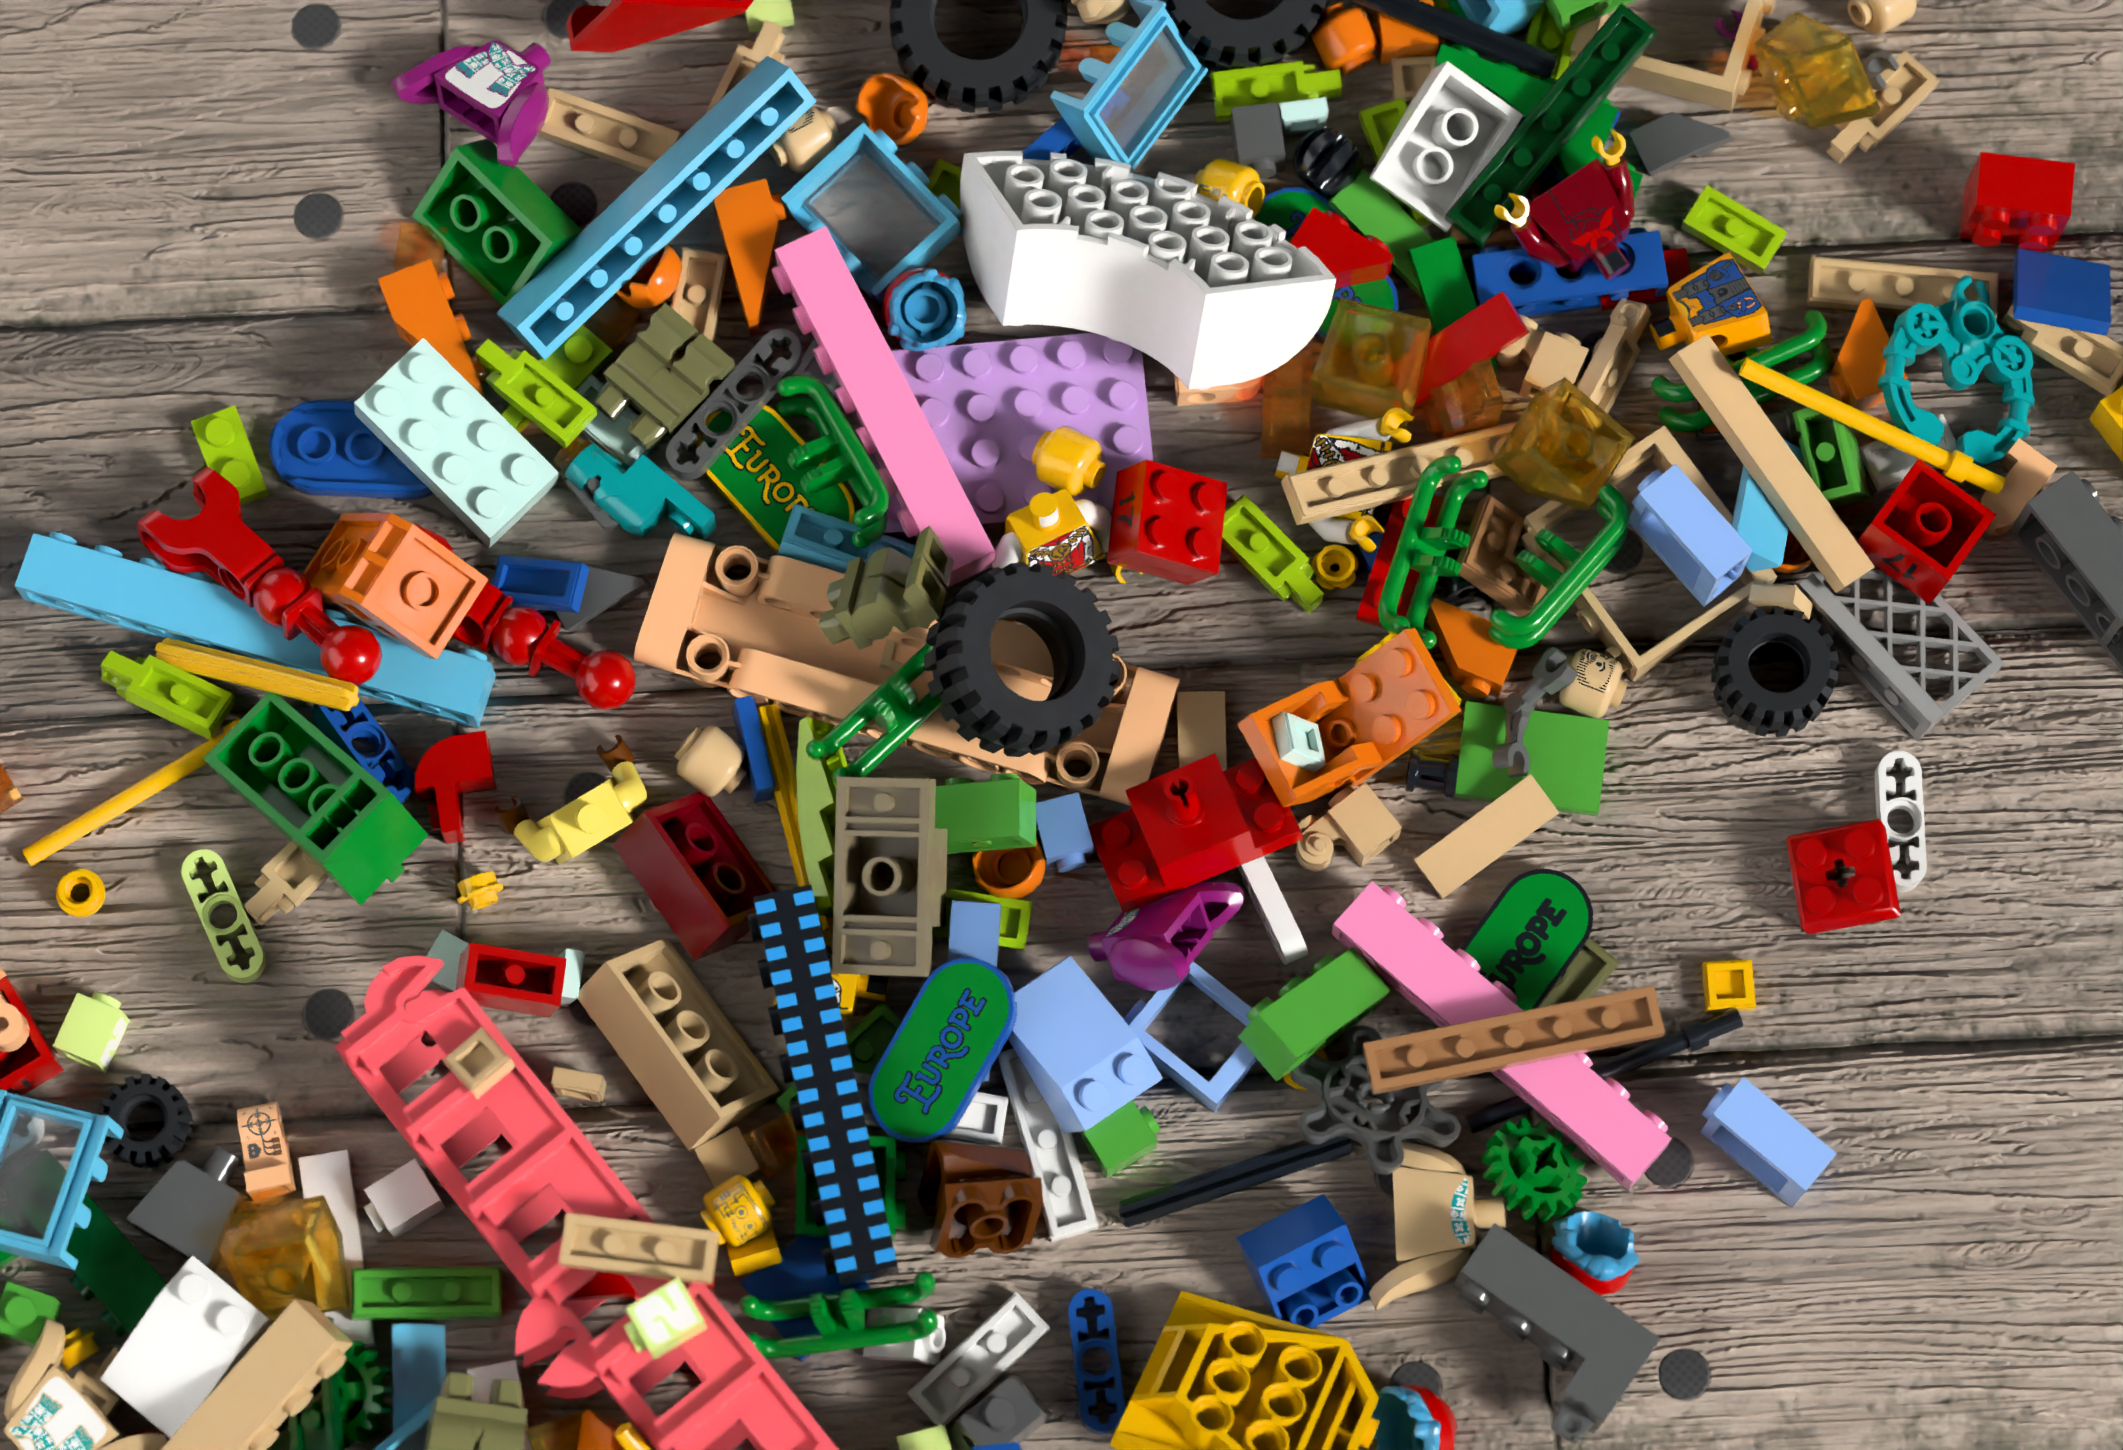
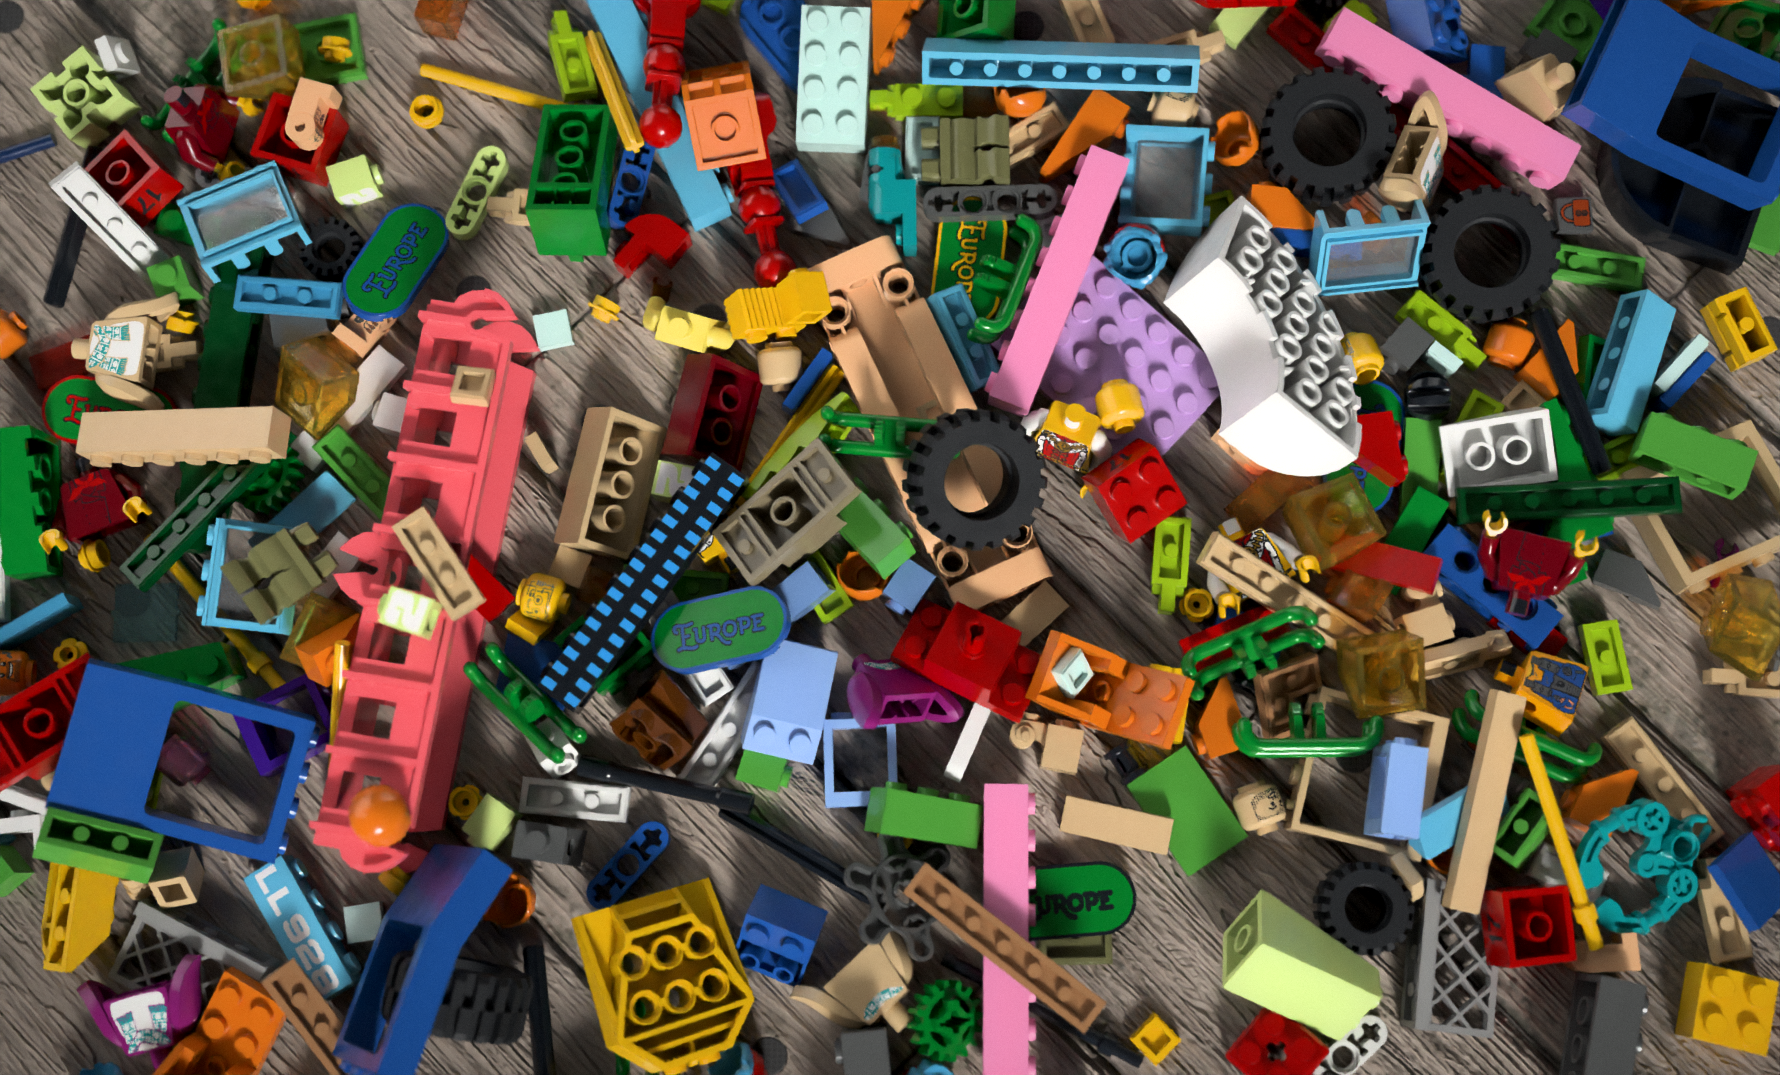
camera: 55 degrees right, 5 degrees up
(166, 1201) = (288, 297): none -> dark azure tile
(184, 1347) = (219, 373): white slope -> none
(227, 1061) = (396, 262): none -> green tile
(512, 979) = (562, 366): red brick -> none
(536, 392) = (898, 95): lime hinge -> none
(572, 976) = (595, 395): light aqua tile -> none
(645, 726) = (758, 315): none -> yellow brick
(667, 670) = (804, 296): none -> yellow brick
(736, 972) = (669, 479): none -> white brick
(888, 592) = (949, 374): olive hips -> none
(983, 1297) = (722, 797): none -> black piece
(1005, 127) = (1280, 206): none -> orange slope
(1521, 704) = (1208, 778): dark grey piece -> none
(1777, 782) = (1297, 968): none -> yellowish green slope

